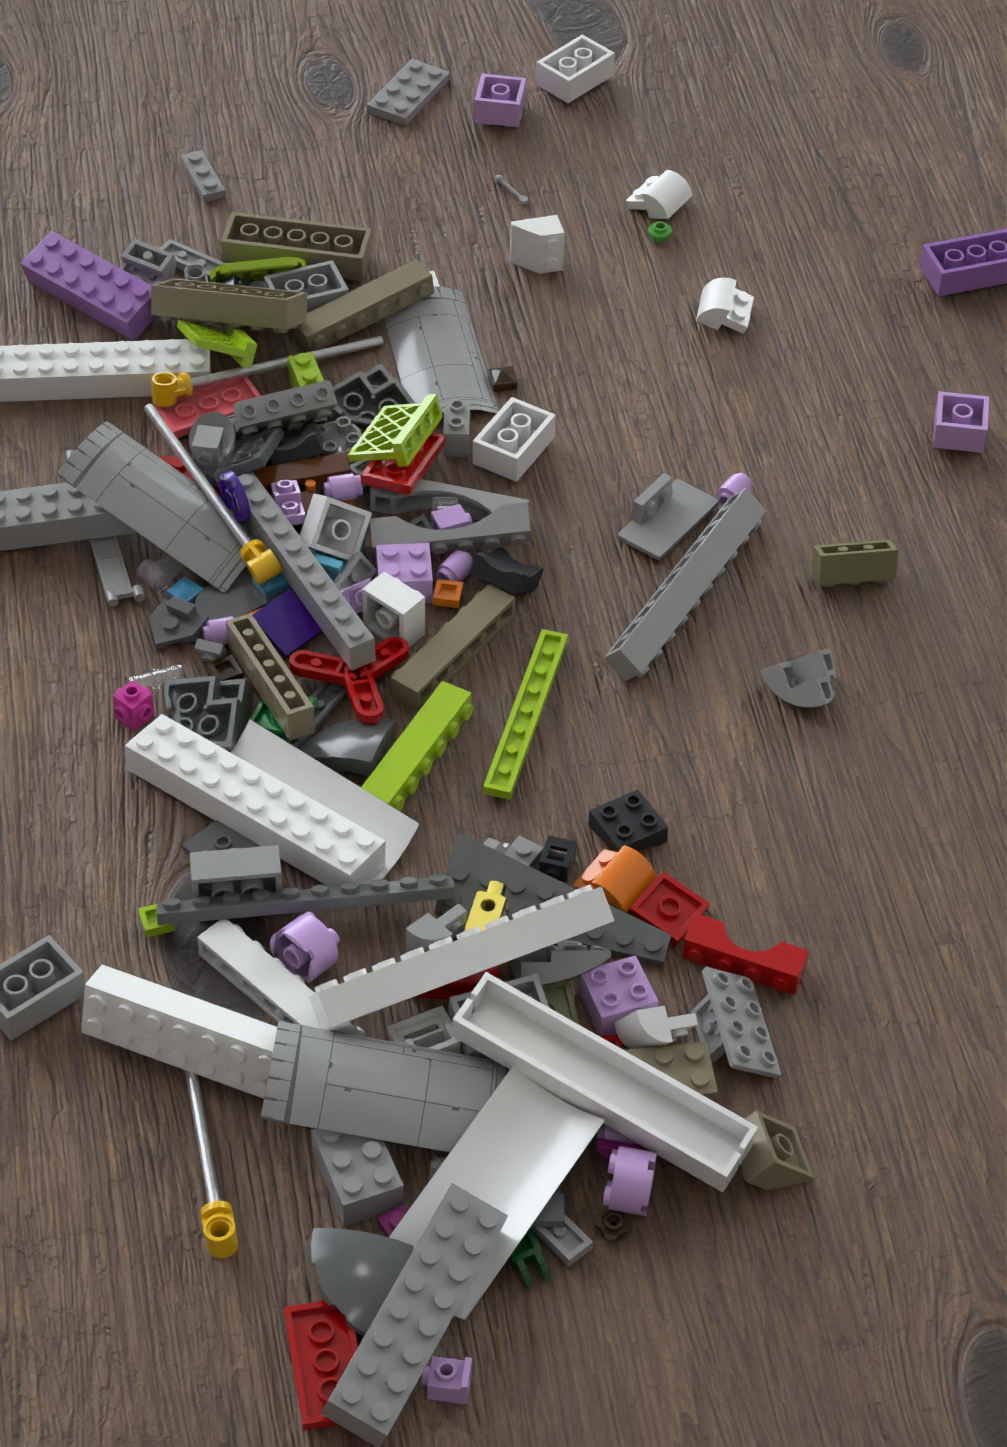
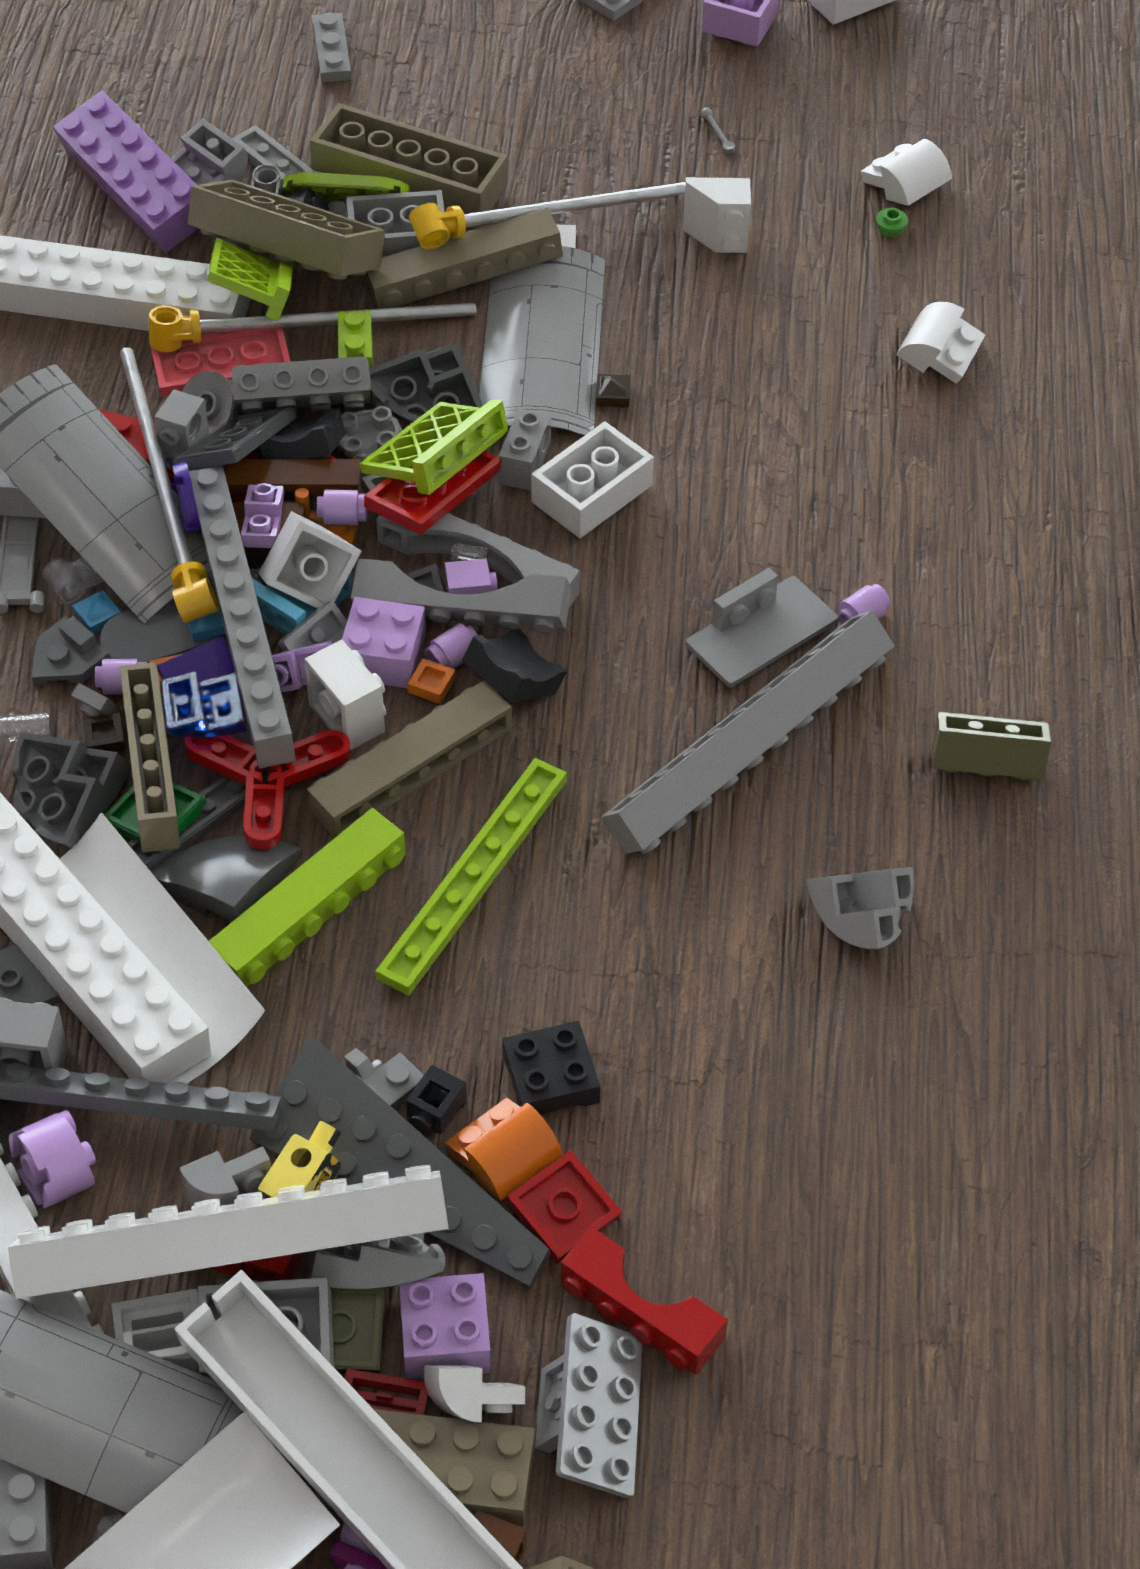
camera: 15 degrees right, 5 degrees up
(296, 637) = (203, 707): none -> clear blue slope
(342, 285) = (435, 228): none -> piece

